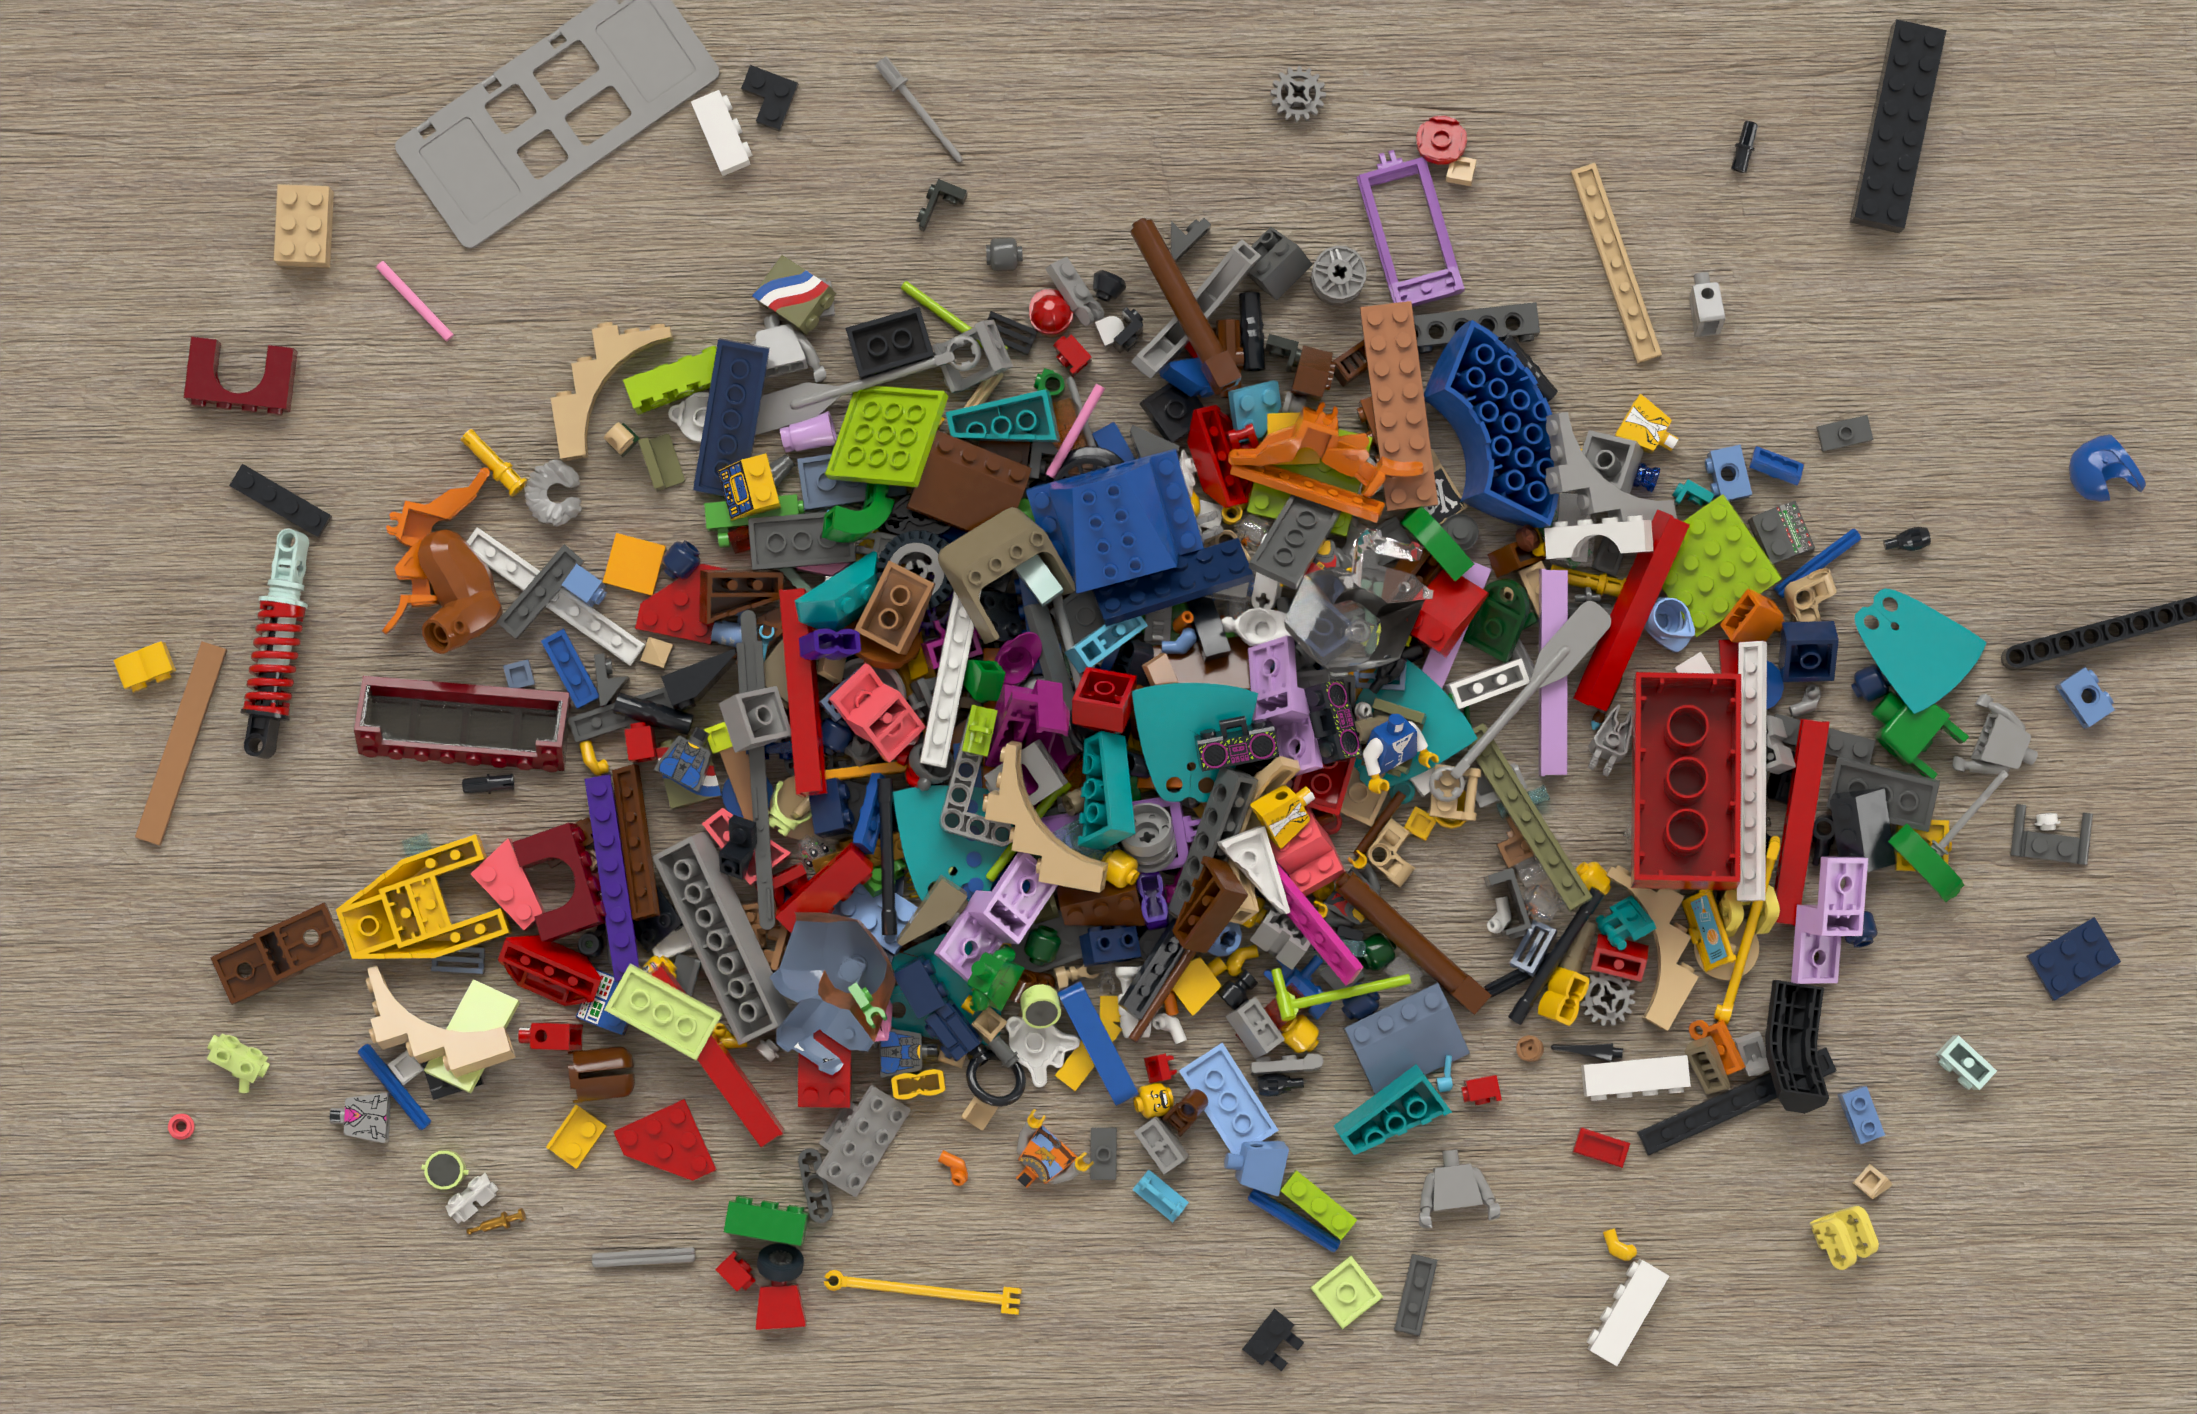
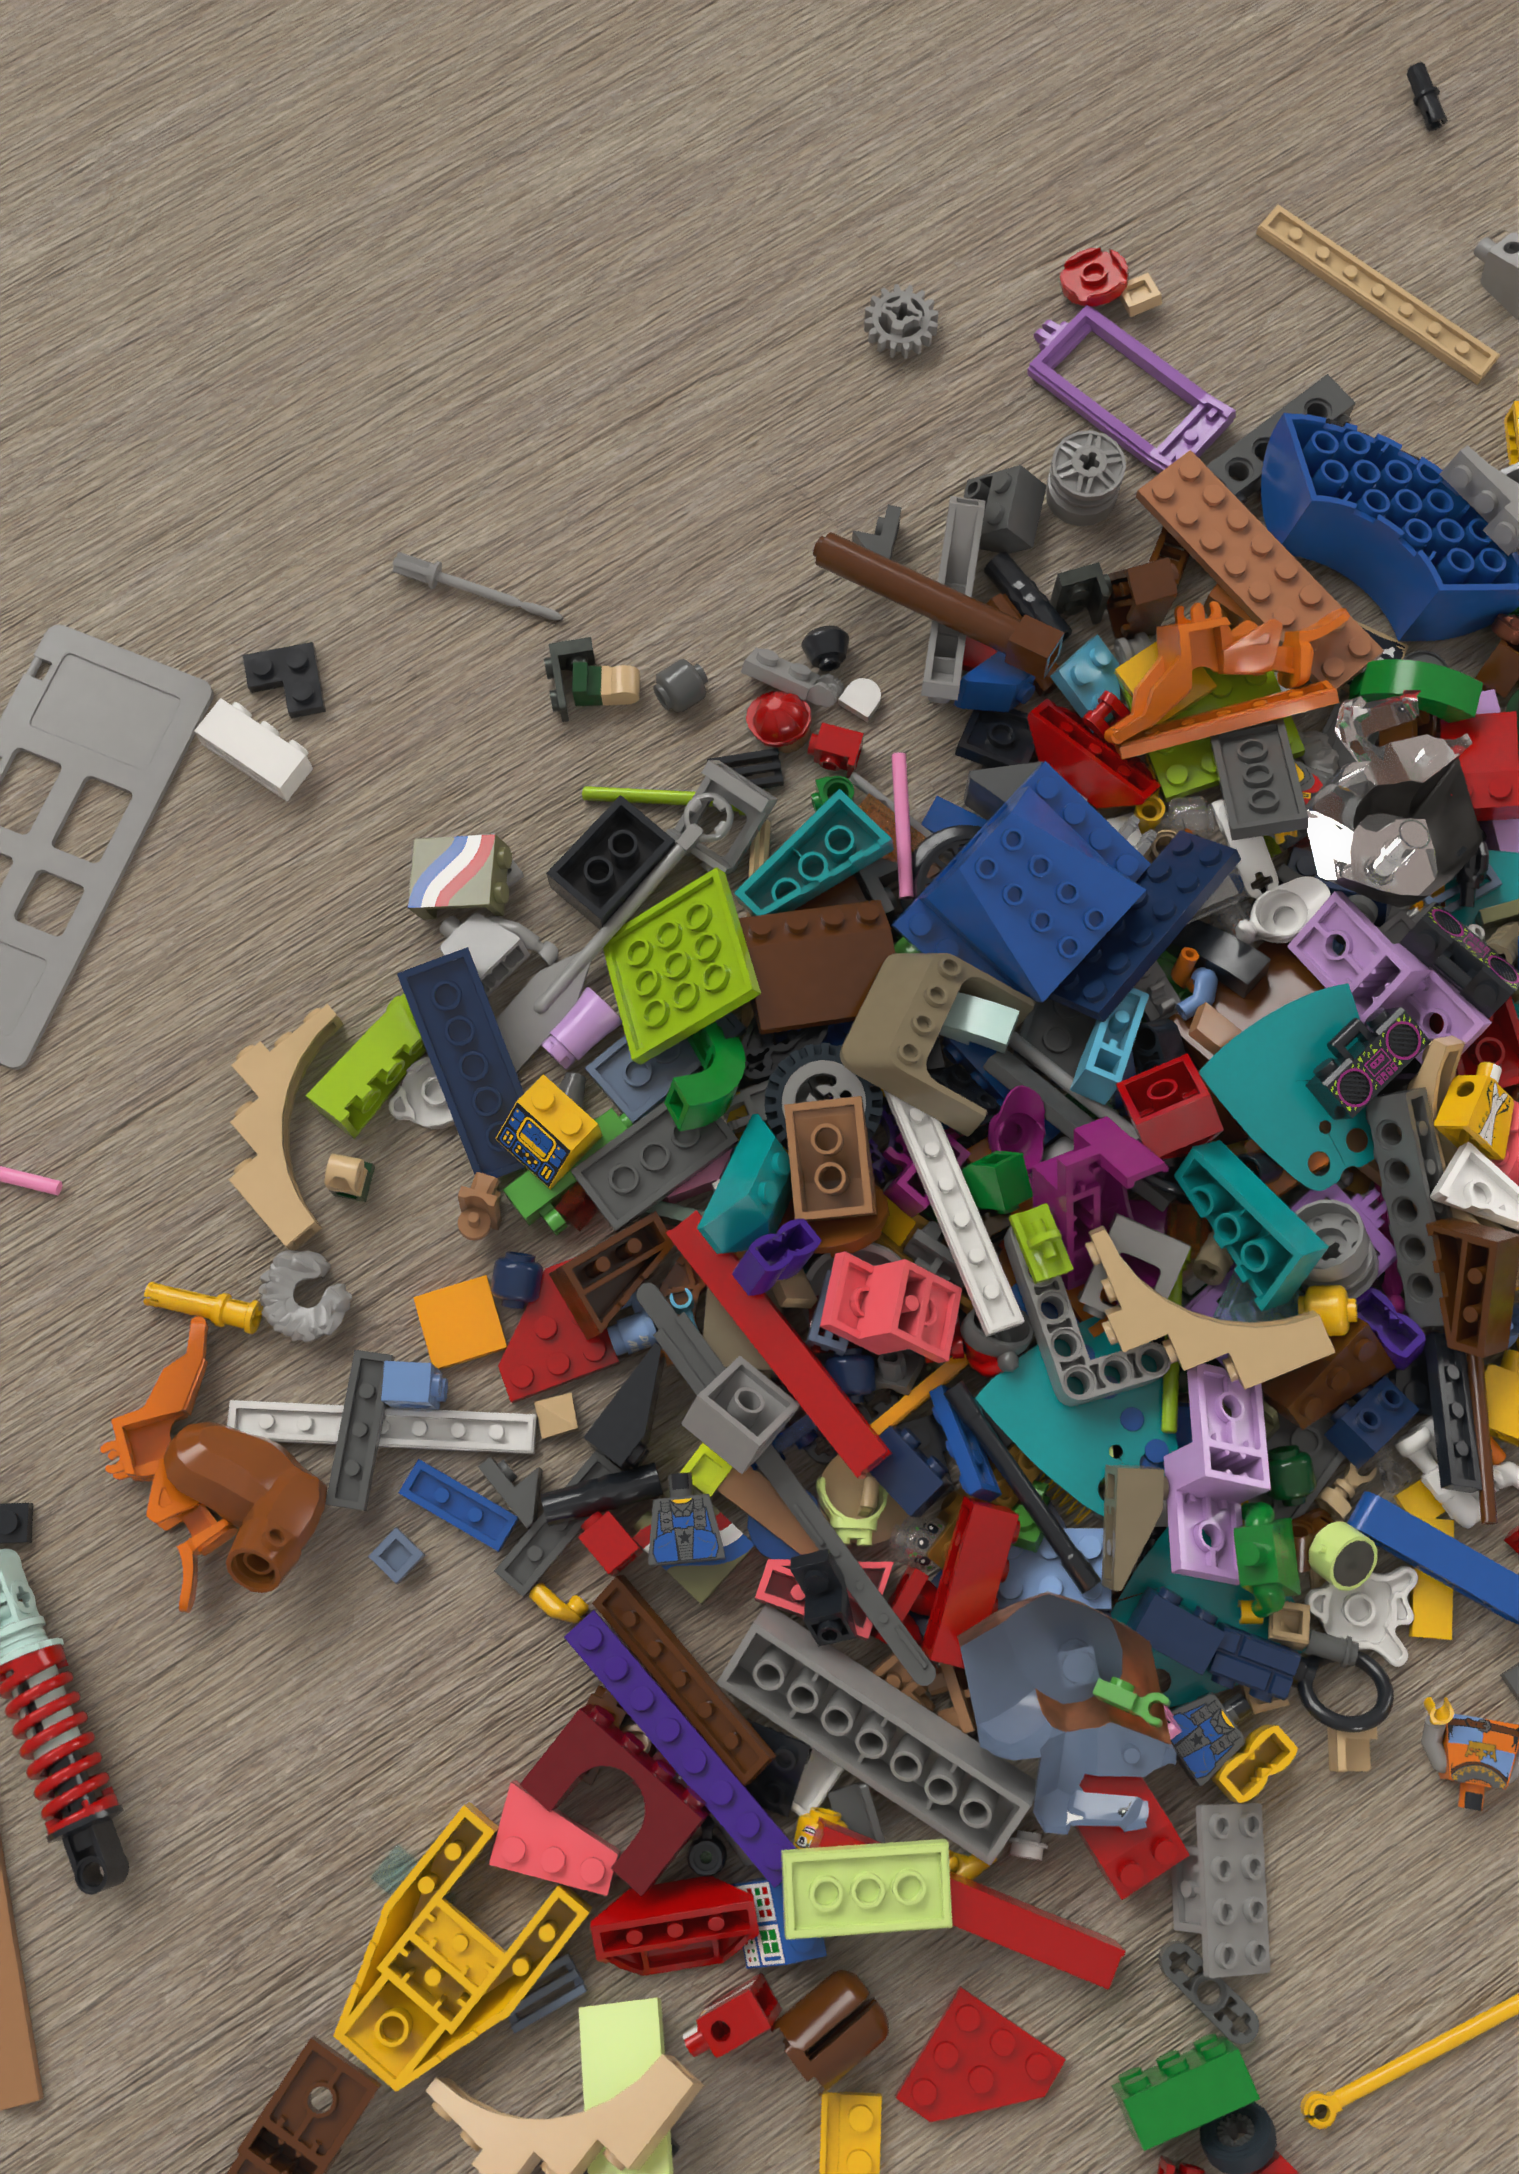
camera: 25 degrees left, 10 degrees down
(462, 723) = (357, 1667): window -> none
(488, 784) = (441, 1725): black axle -> none
(662, 462) = (418, 1176): olive panel -> none
(684, 506) = (479, 1207): none -> medium nougat hips
(957, 1167) = (1372, 1842): orange arm -> none
(958, 224) = (605, 685): none -> leg
(1129, 336) = (885, 666): black bracket -> none

